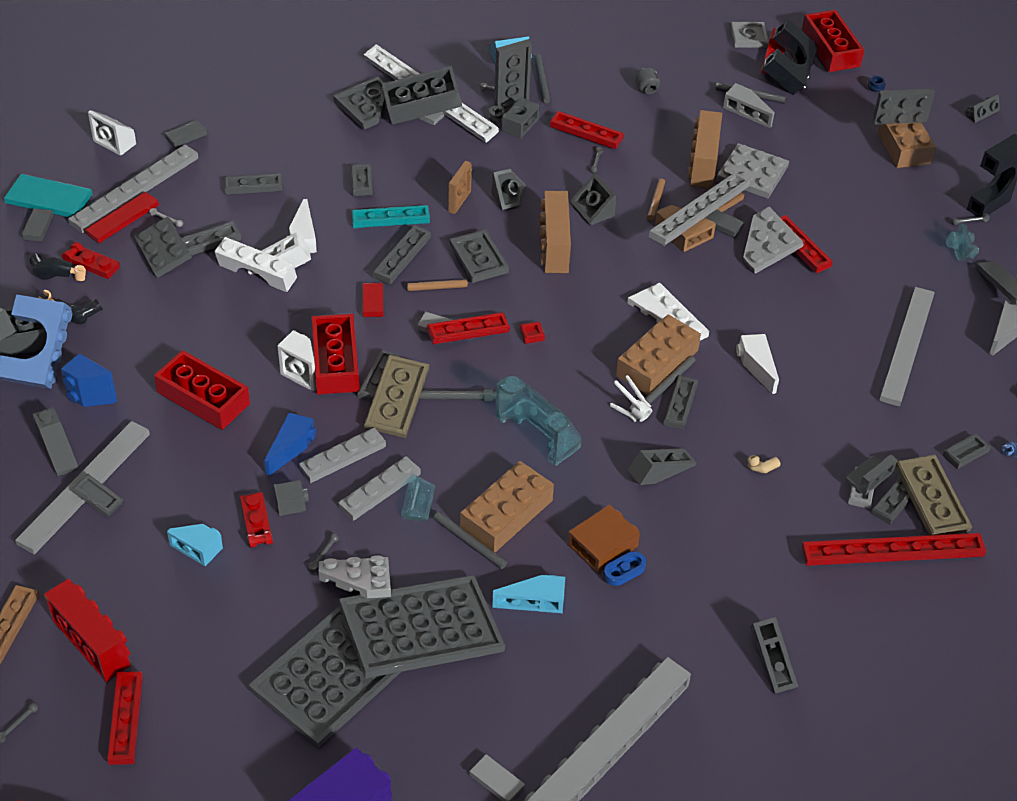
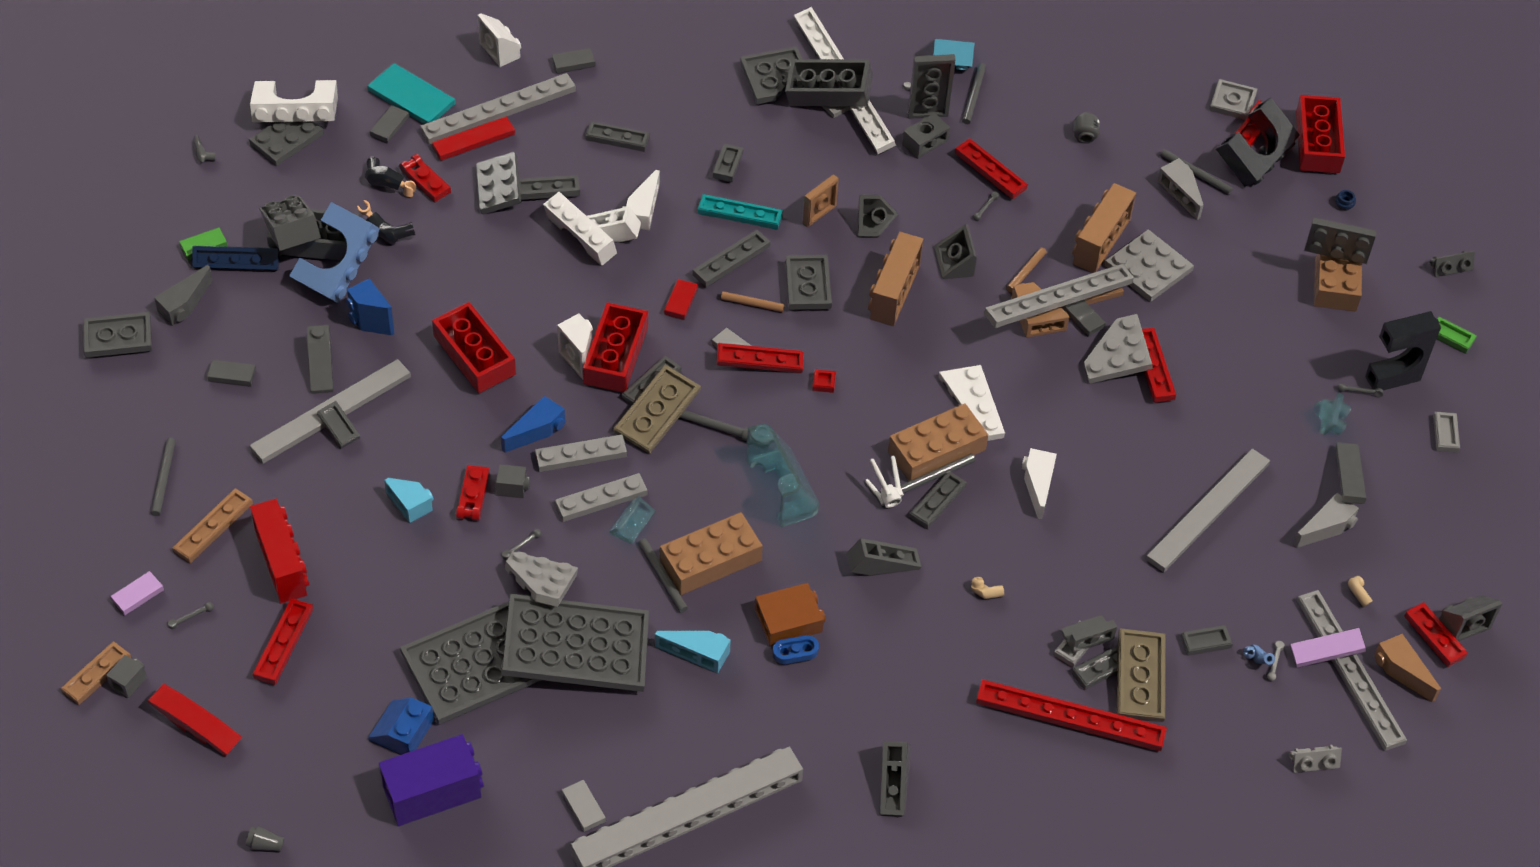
camera: 20 degrees right, 5 degrees up
(153, 212) = (507, 141): light grey hinge -> none
(283, 761) = (403, 725): none -> blue slope
(496, 113) = (903, 118): dark grey bush -> none

